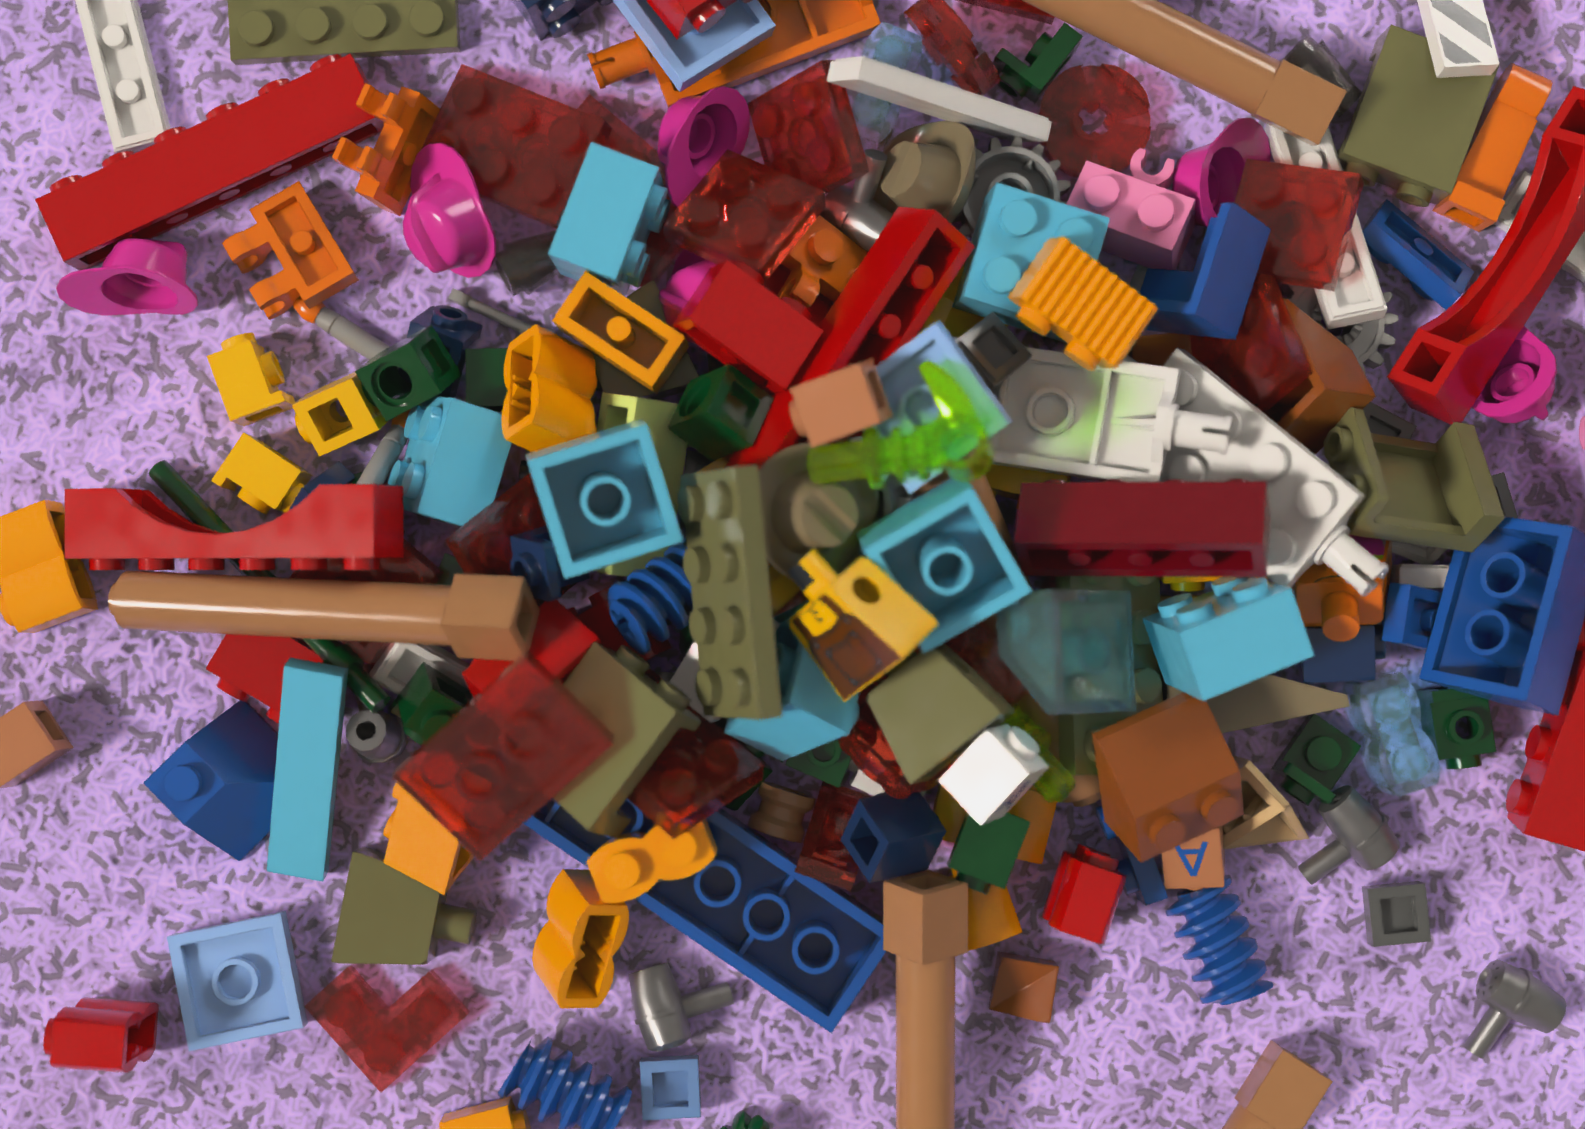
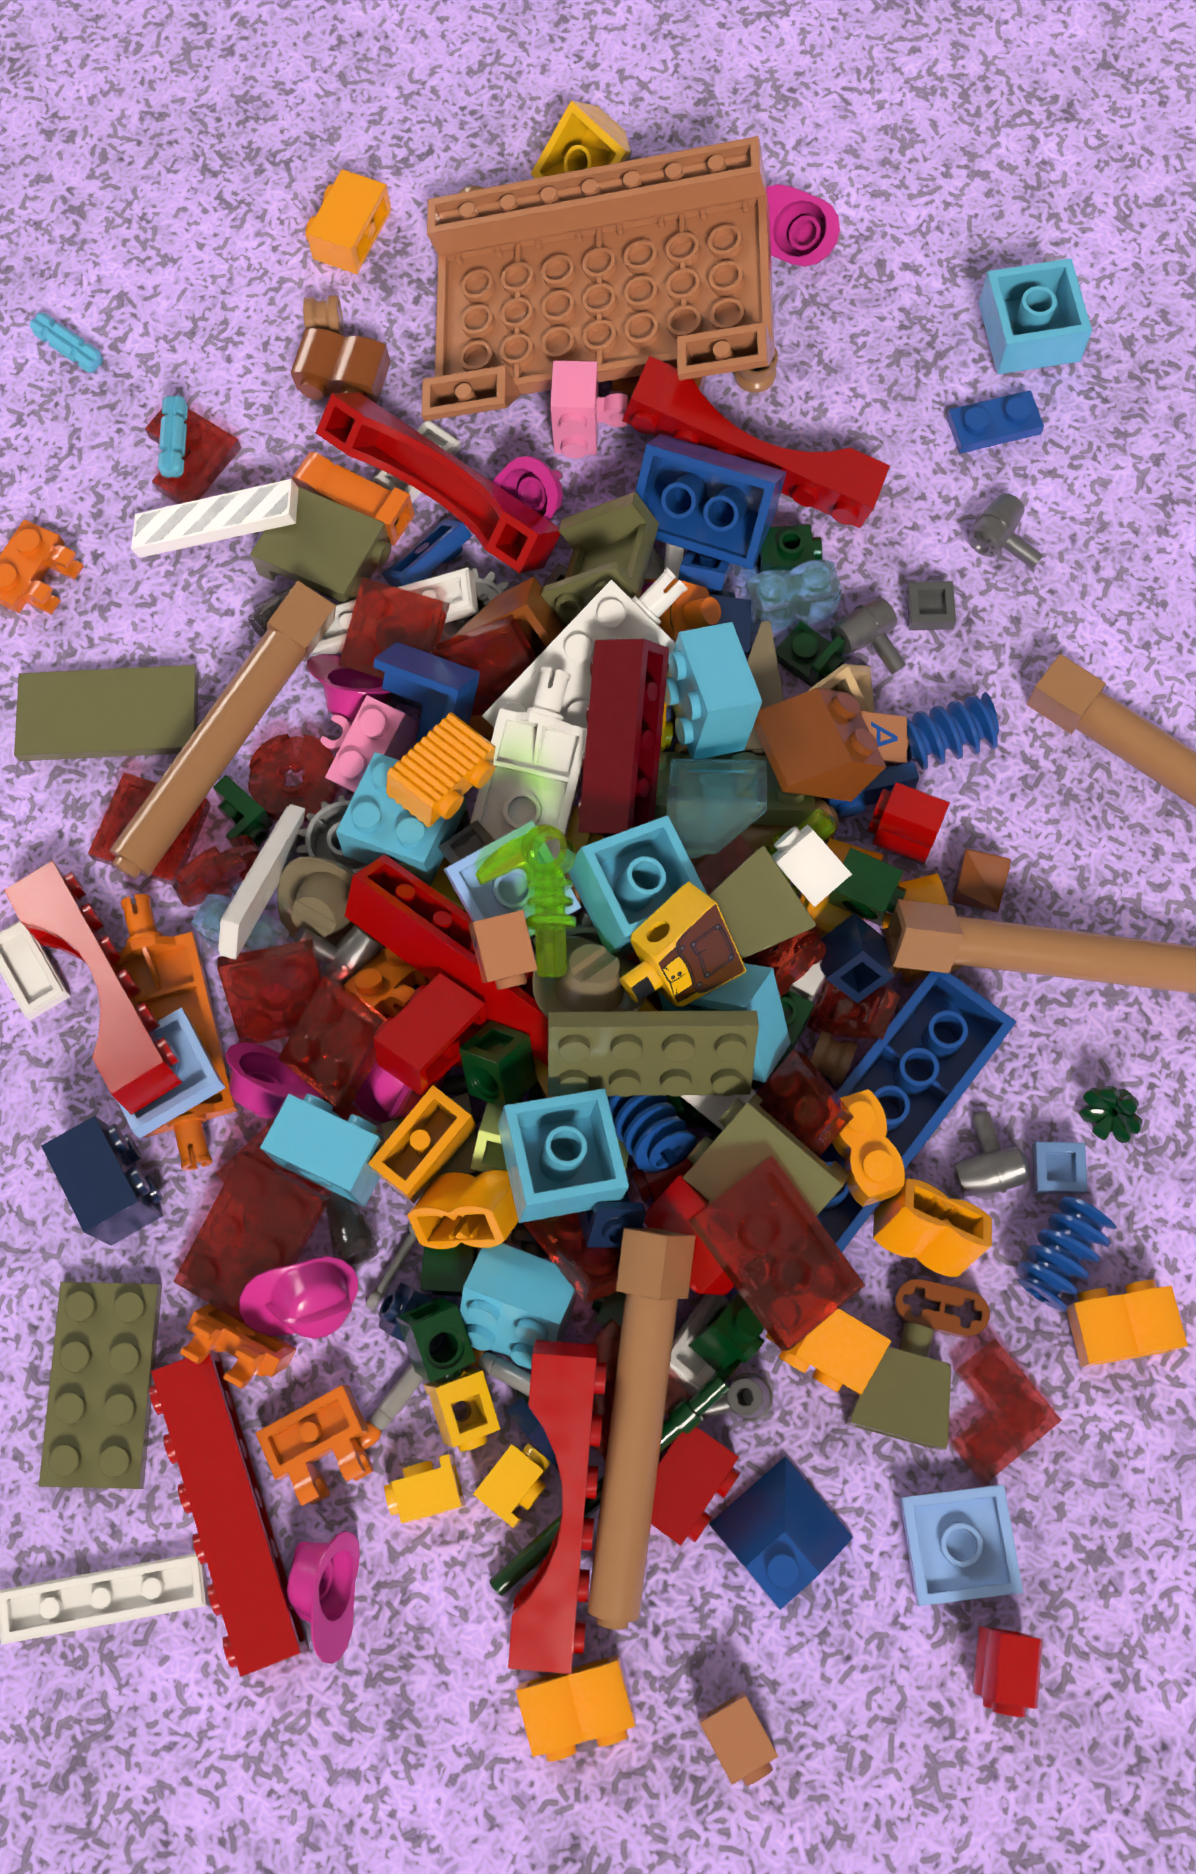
camera: 80 degrees left, 15 degrees down
(306, 768) = (775, 1457): medium azure tile -> none
(484, 949) = (943, 1296): none -> dark orange beam

